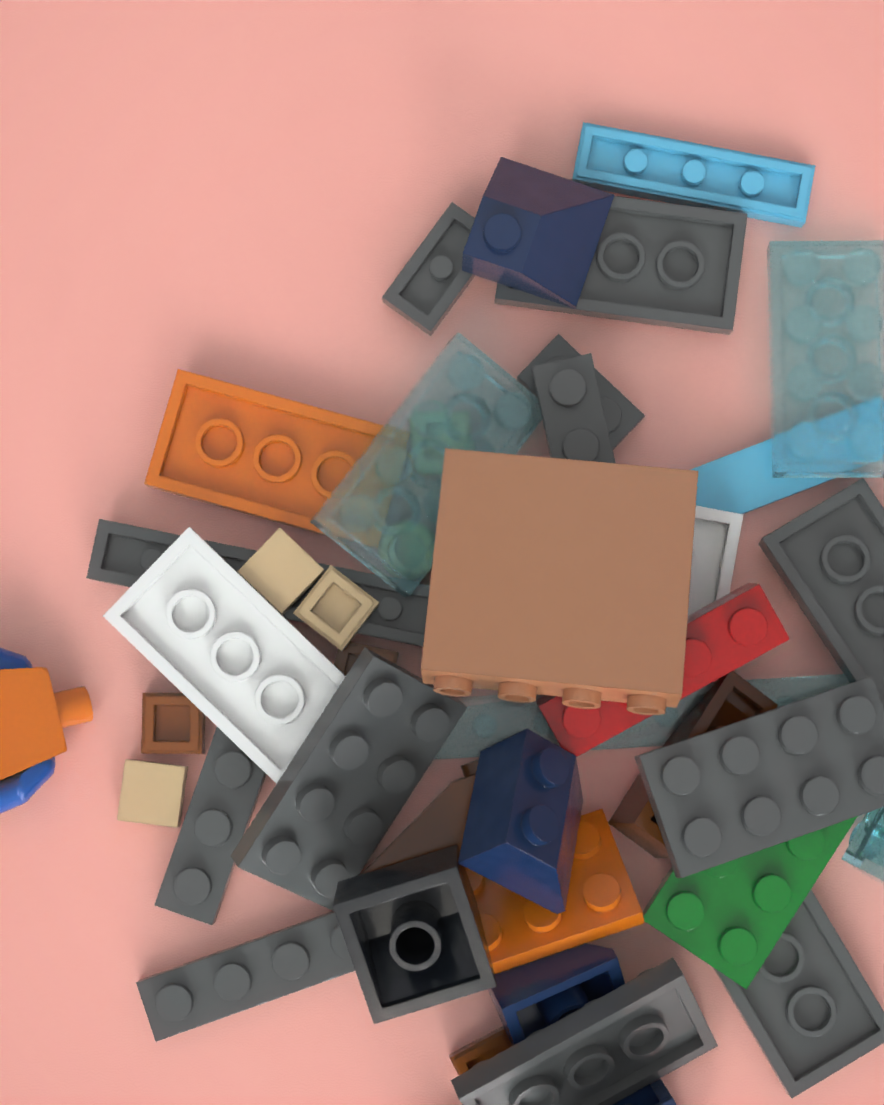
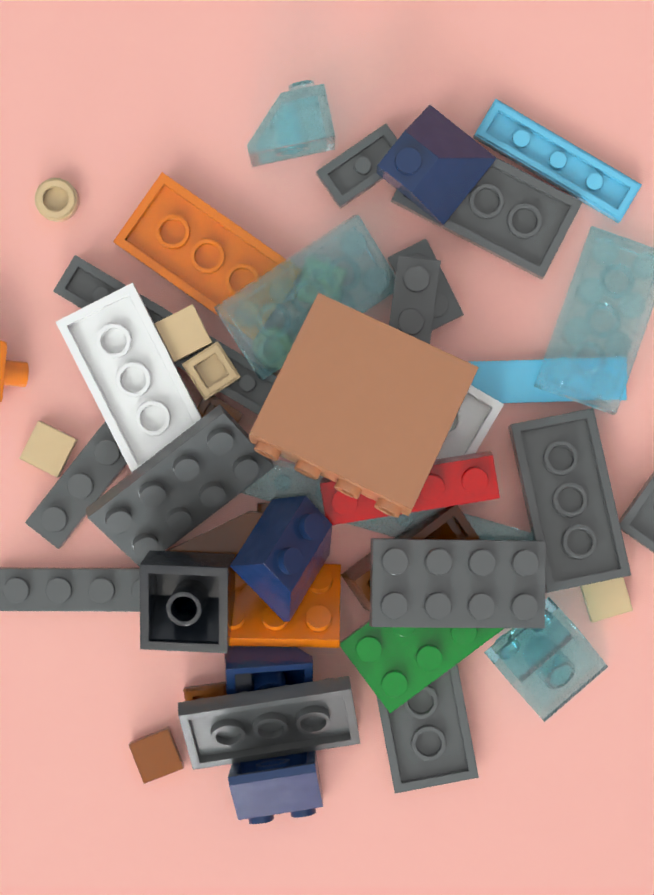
camera: 20 degrees right, 5 degrees up
(50, 456) = (56, 199): none -> tan tile
(171, 725) = (76, 408): dark orange tile -> none
(334, 245) = (294, 126): none -> clear light blue slope

